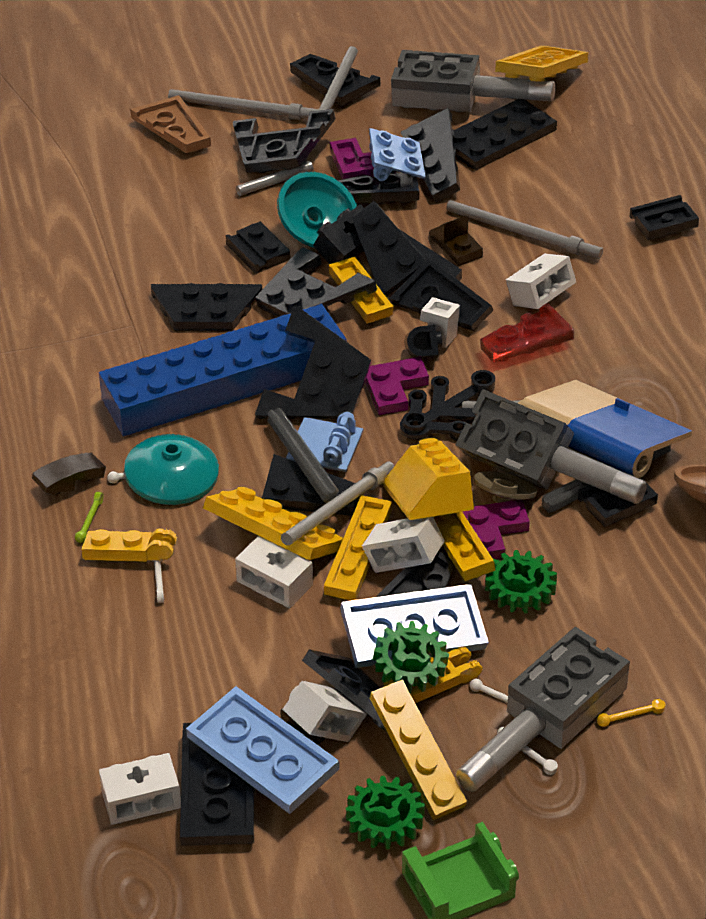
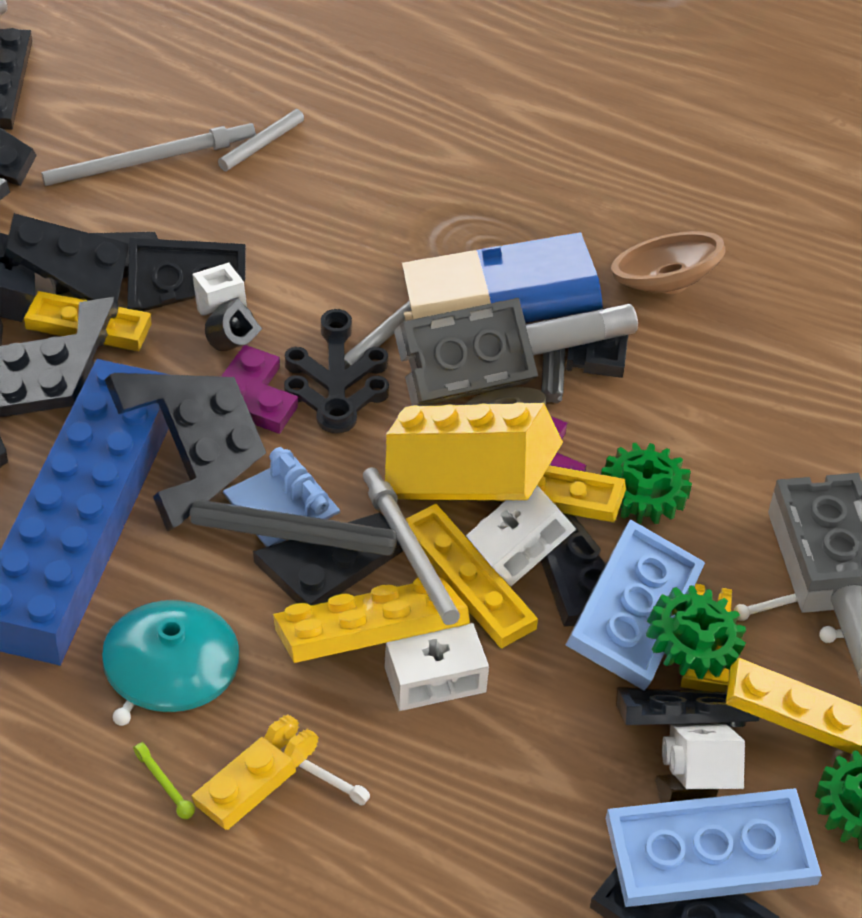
camera: 55 degrees left, 5 degrees up
(63, 473) = (76, 753): dark brown slope -> none
(456, 241) = (97, 208): dark brown slope -> none
(530, 334) = (306, 250): clear red wing -> none
(541, 281) = (250, 190): white brick -> none
(606, 262) = (260, 140): none -> light grey bar
(664, 217) = (260, 59): black plate -> none

